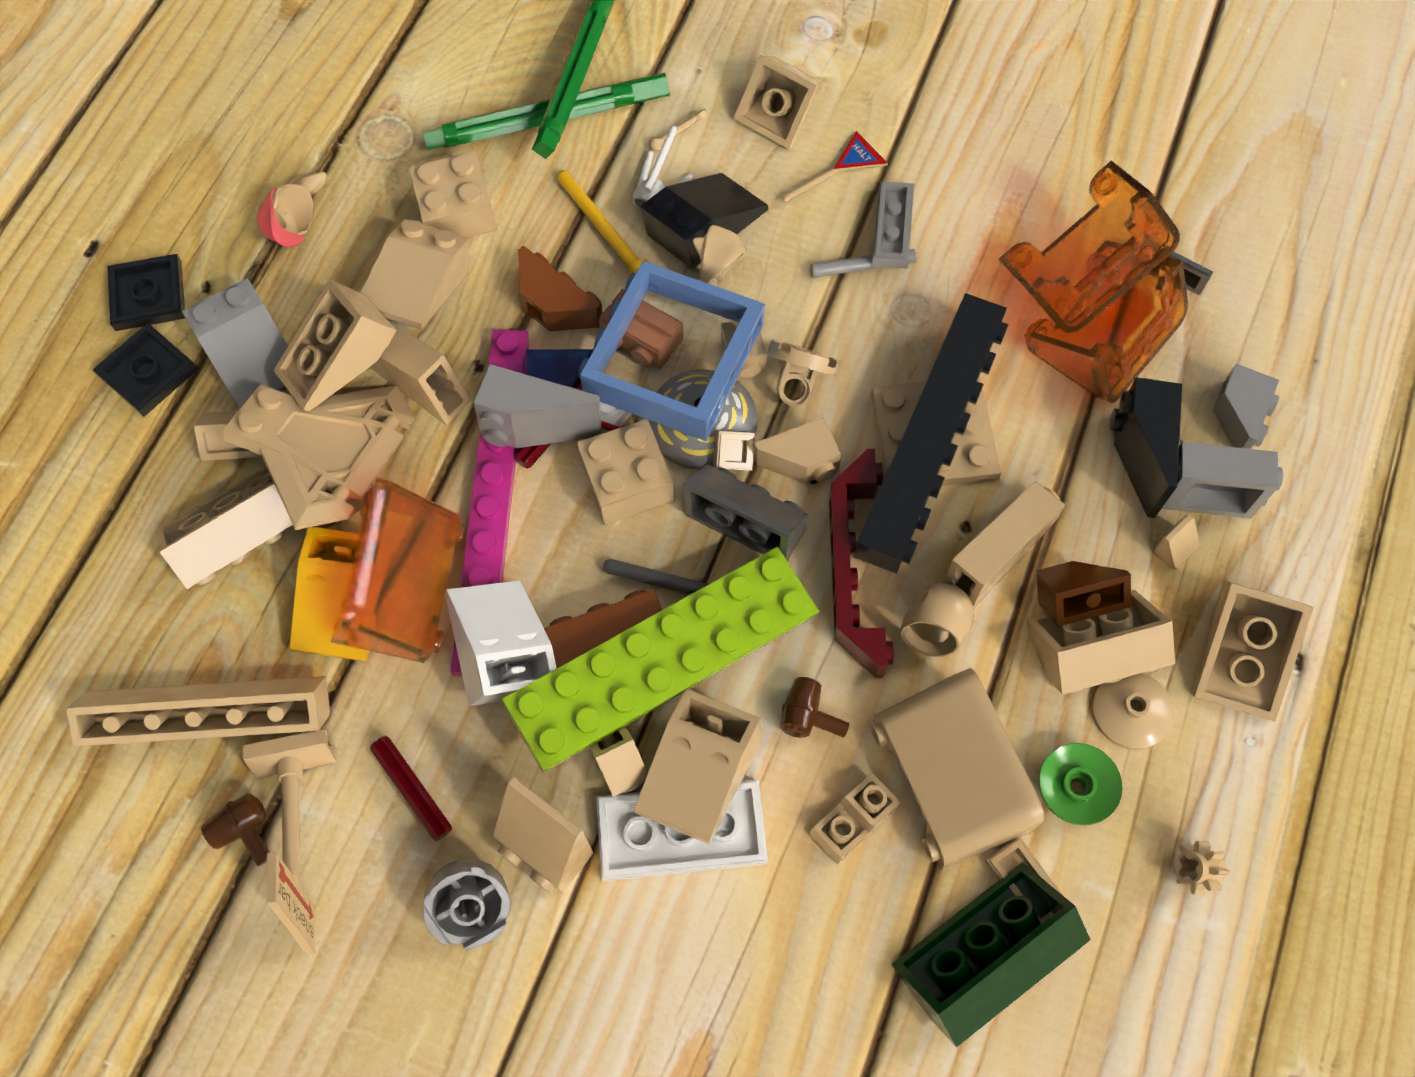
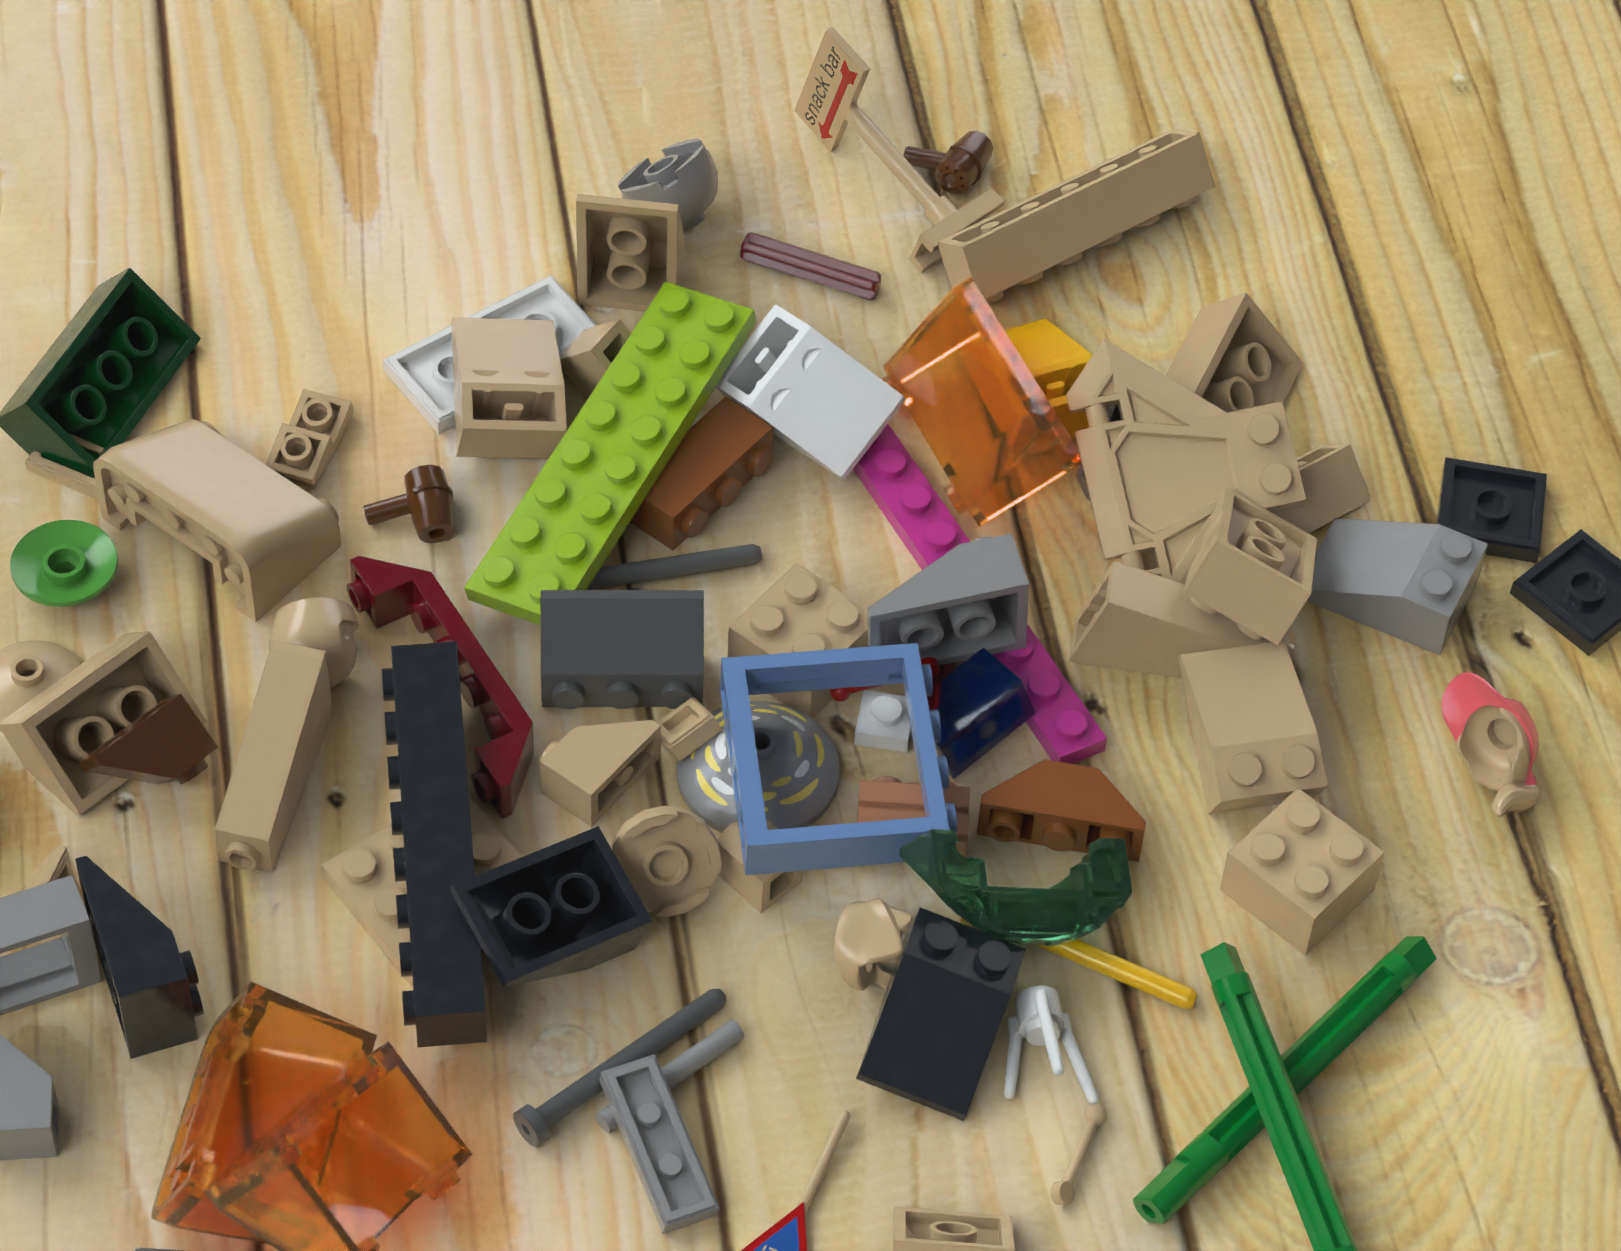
camera: 145 degrees right, 15 degrees down
(613, 235) = (1024, 914): none -> clear green windscreen
(891, 346) = (554, 910): none -> black slope
(952, 267) = (534, 1123): none -> dark grey bar

